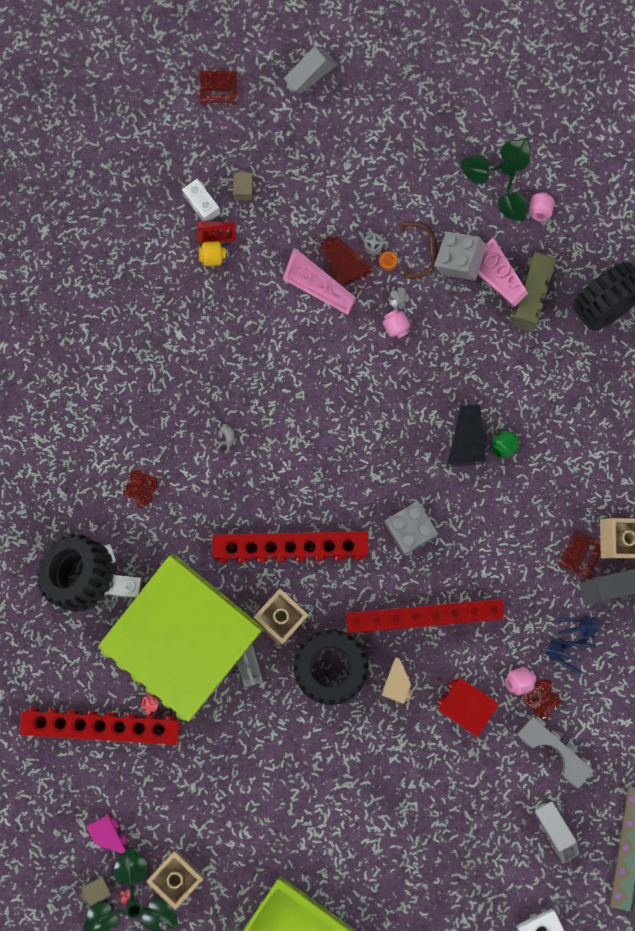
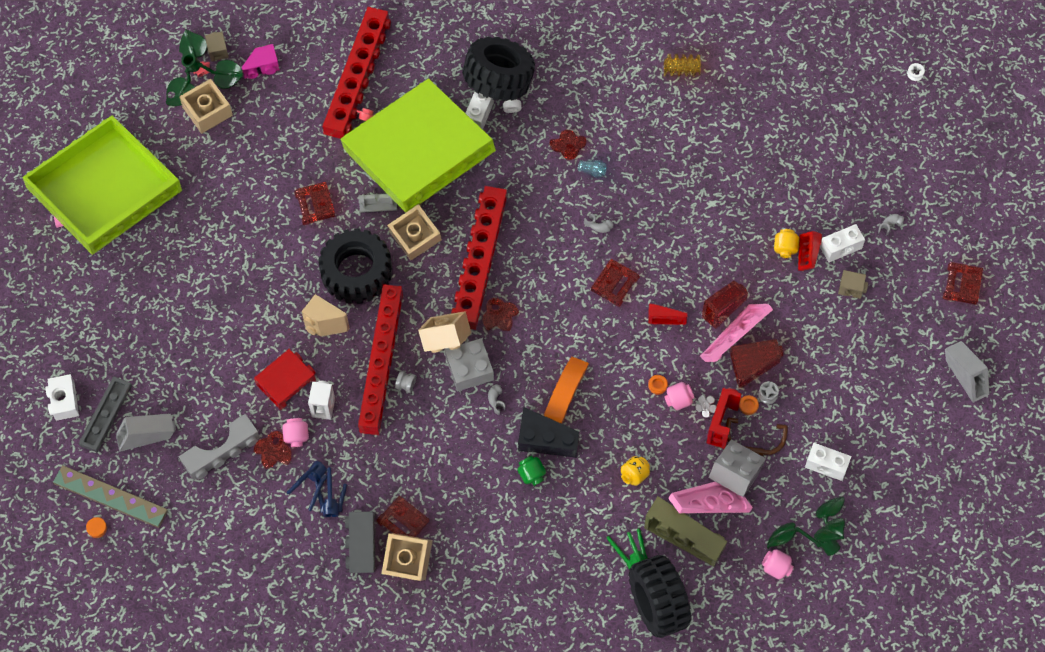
camera: 100 degrees right, 15 degrees down
(26, 390) = (682, 65): none -> clear yellow piece
(162, 161) = (890, 220): none -> light grey arm
(164, 457) = (593, 167): none -> clear light blue cone
(260, 725) = (321, 203): none -> clear red plate
(286, 414) = (609, 280): none -> clear red plate
(291, 298) = (724, 303): none -> clear red slope
(315, 360) = (663, 315): none -> red slope
(349, 511) = (501, 316): none -> clear red plate
(386, 347) = (657, 384): none -> orange tile
(387, 557) = (444, 332): none -> tan brick
(413, 281) = (719, 434): none -> red panel
(414, 431) = (565, 389): none -> orange slope
(432, 178) = (828, 461): none -> white brick
(435, 500) = (492, 397): none -> light grey arm
(441, 586) = (405, 381): none -> light grey wheel
(481, 349) = (635, 470): none -> yellow head
(485, 661) = (321, 400): none -> white brick
(546, 880) = (105, 414): none -> dark grey plate
(566, 330) = (636, 556): none -> green plant

